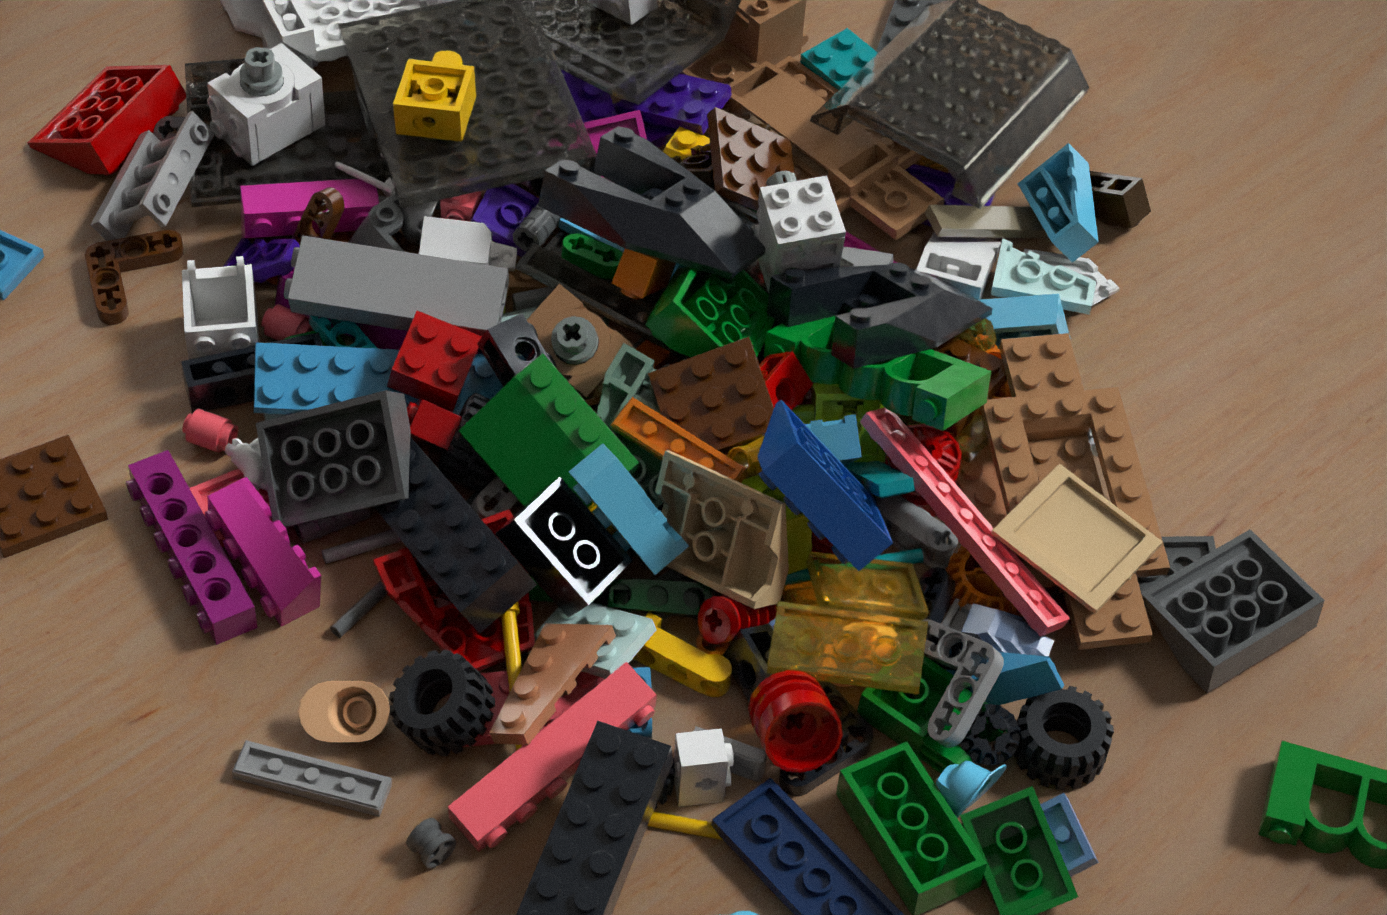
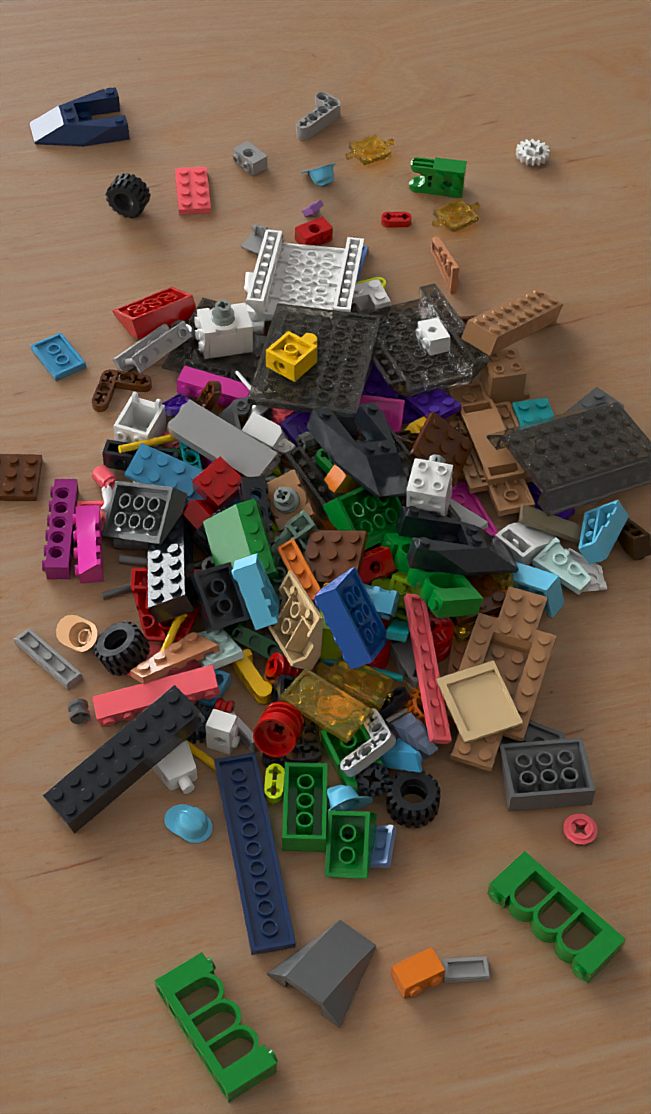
camera: 30 degrees right, 0 degrees up
(264, 336) = (149, 442): none -> yellow bar
(665, 863) = (178, 769): none -> white torso
(667, 726) = (224, 706): none -> red wheel
(835, 810) = (269, 783): none -> neon yellow beam
(1341, 669) = (580, 821): none -> coral gear

